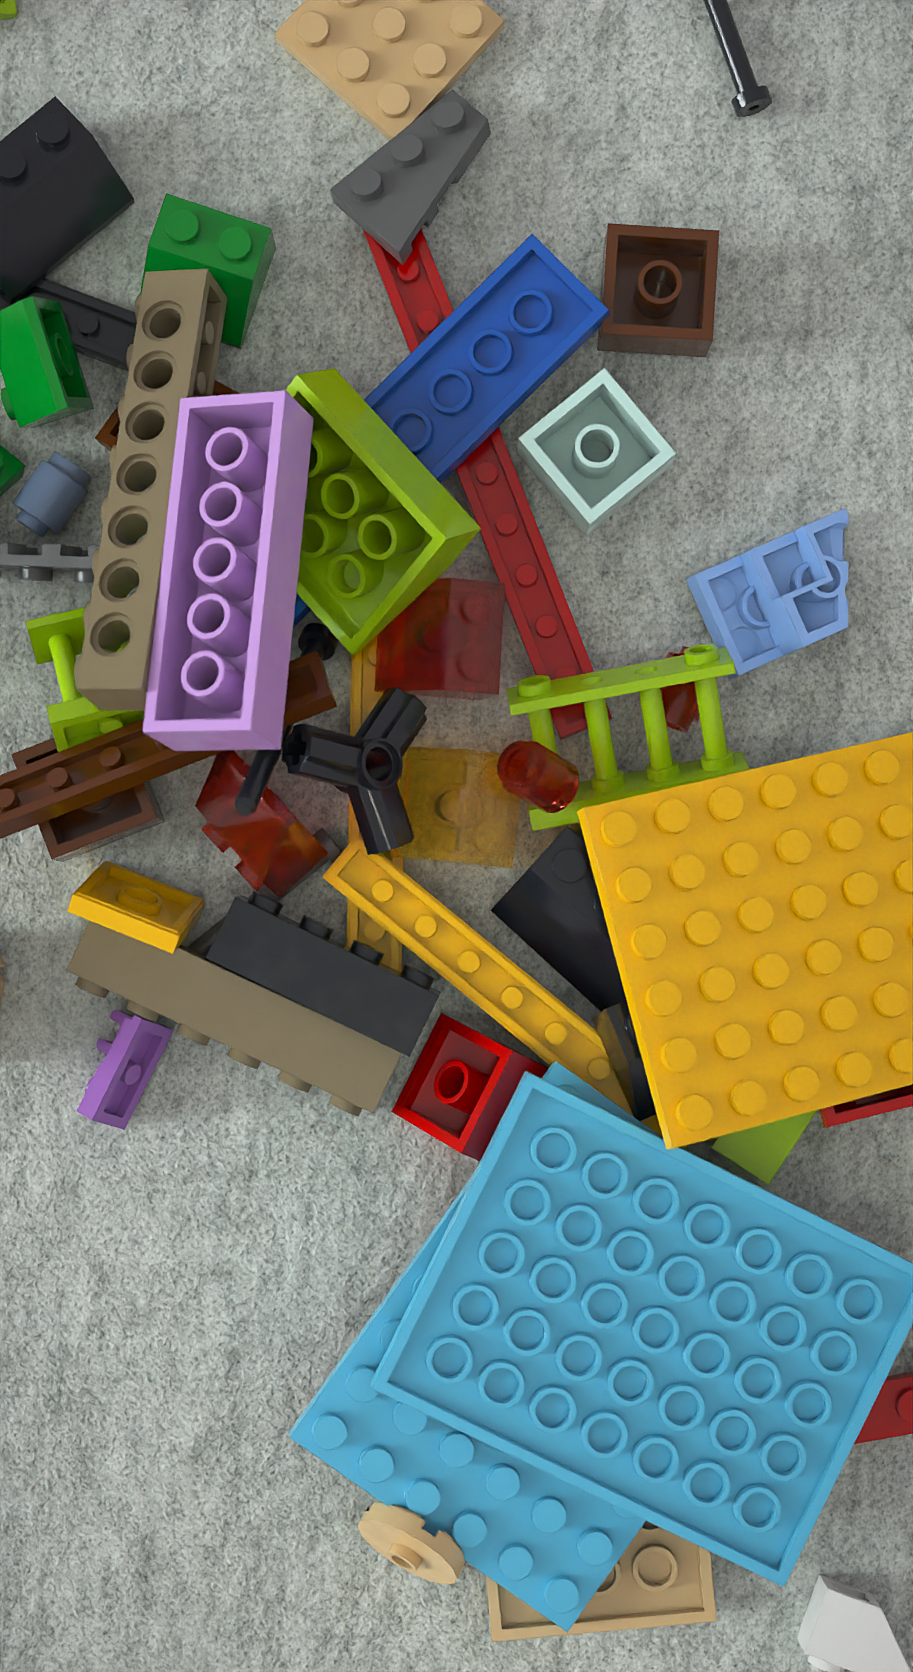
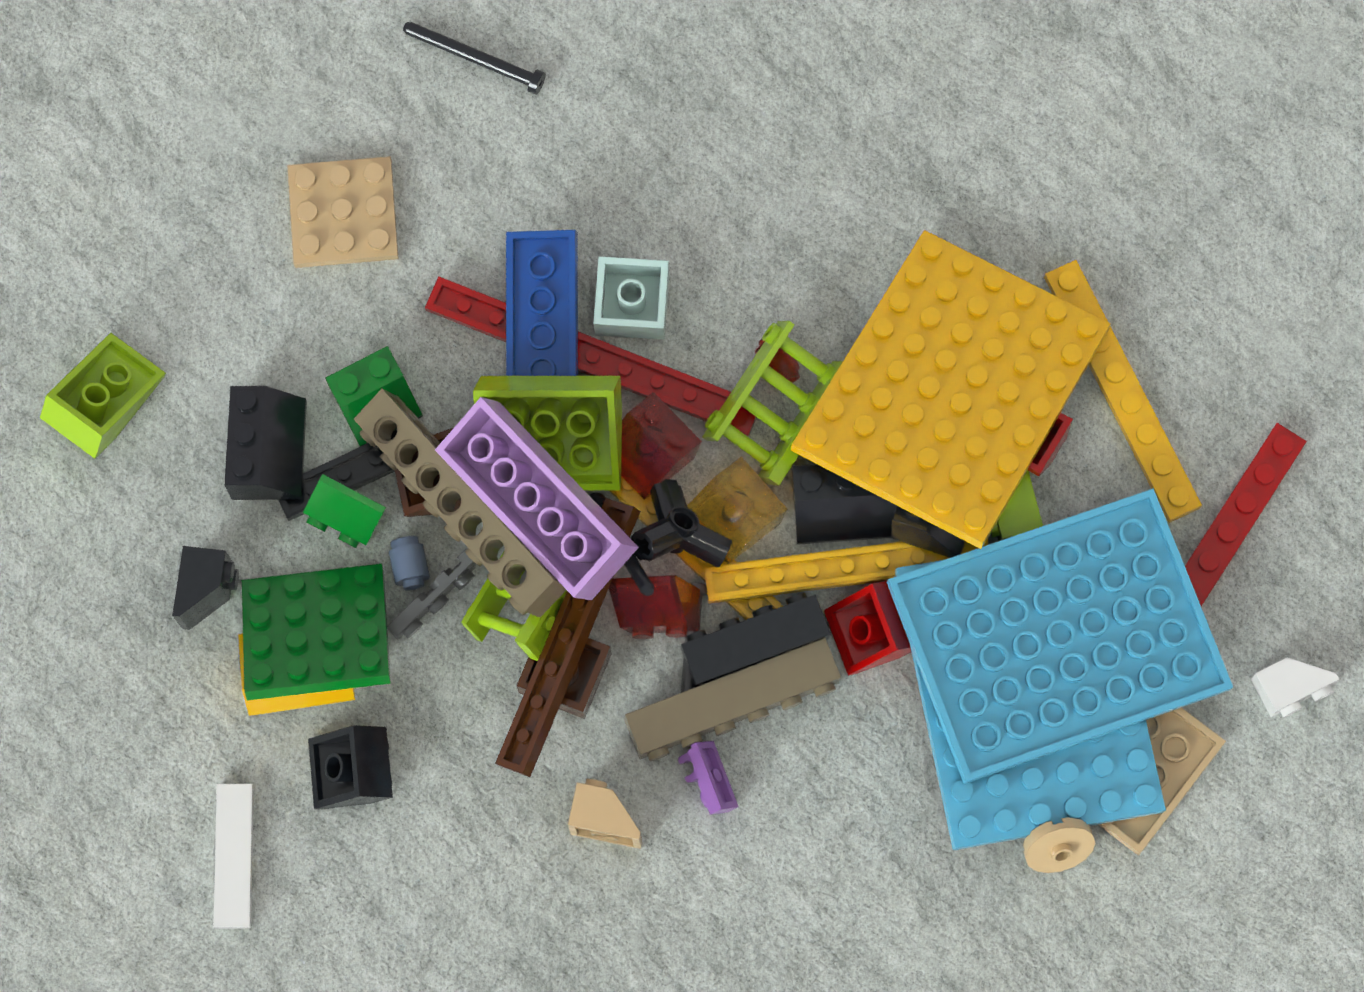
camera: 45 degrees left, 10 degrees down
(137, 906) = (641, 696): yellow tile -> none
(408, 176) = (421, 263): dark grey wing -> none
(538, 775) = (757, 454): clear red brick -> none
(658, 290) = (584, 200): reddish brown brick -> none
(777, 594) = (775, 278): light blue slope -> none

